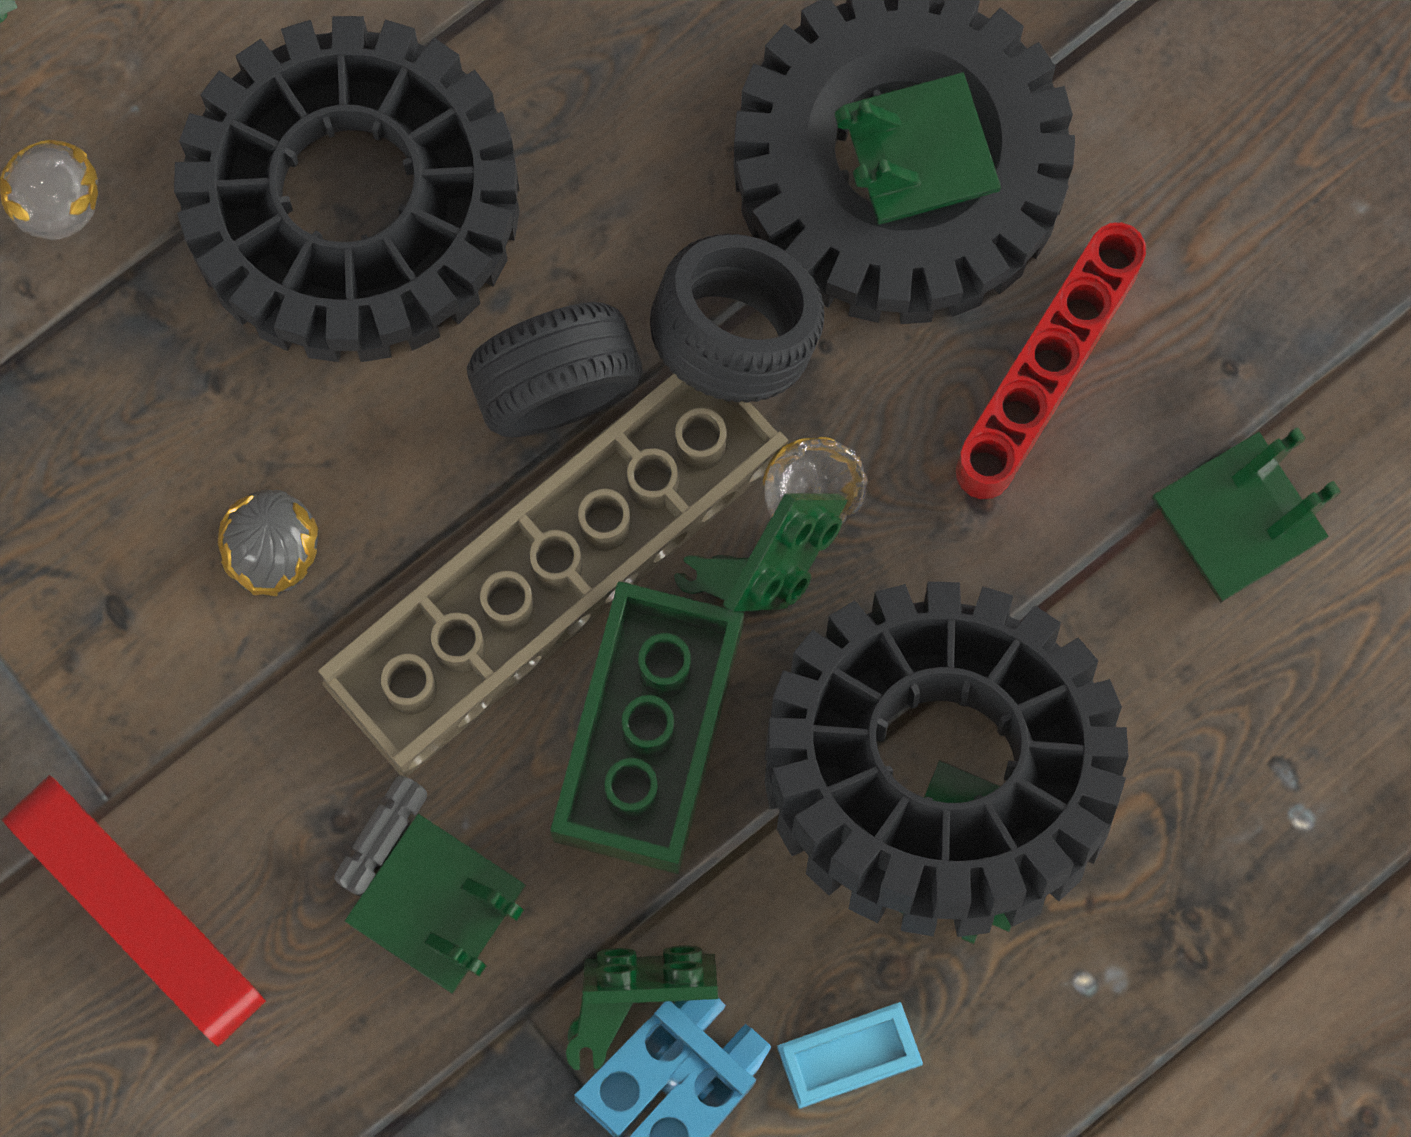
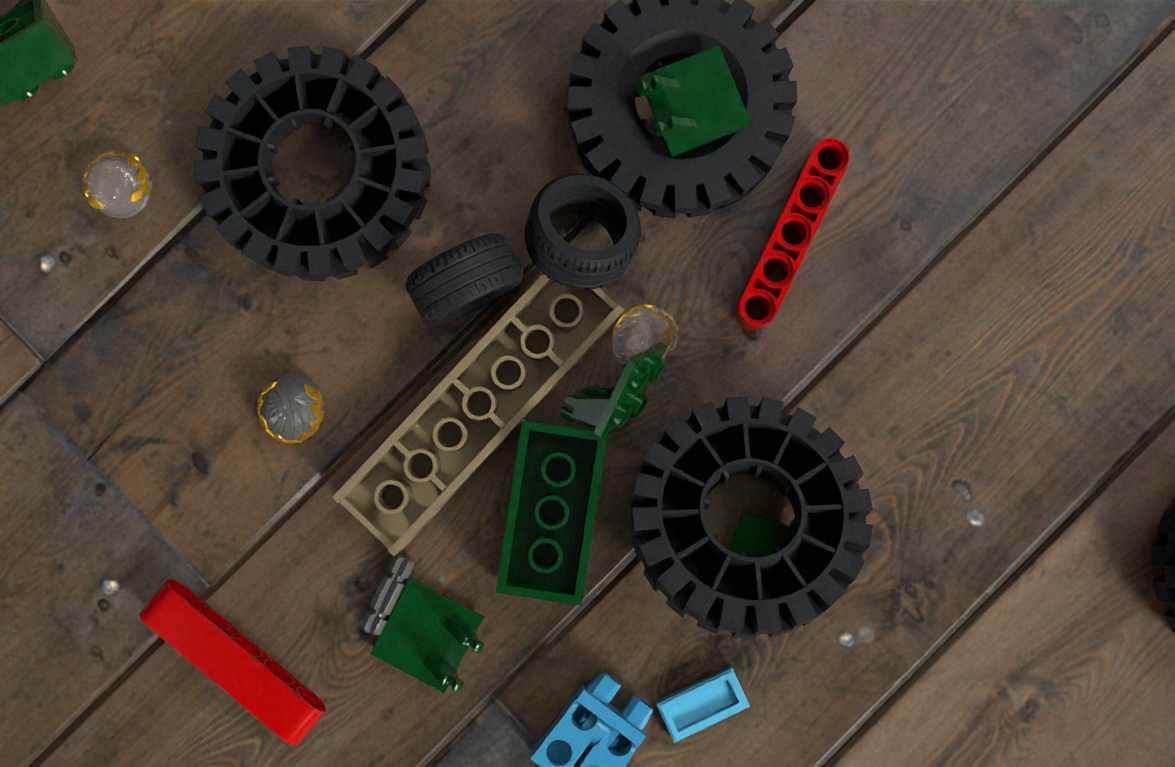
camera: 10 degrees left, 10 degrees up
(622, 979) = (565, 681): dark green plate -> none
(1244, 514) = (925, 325): dark green plate -> none

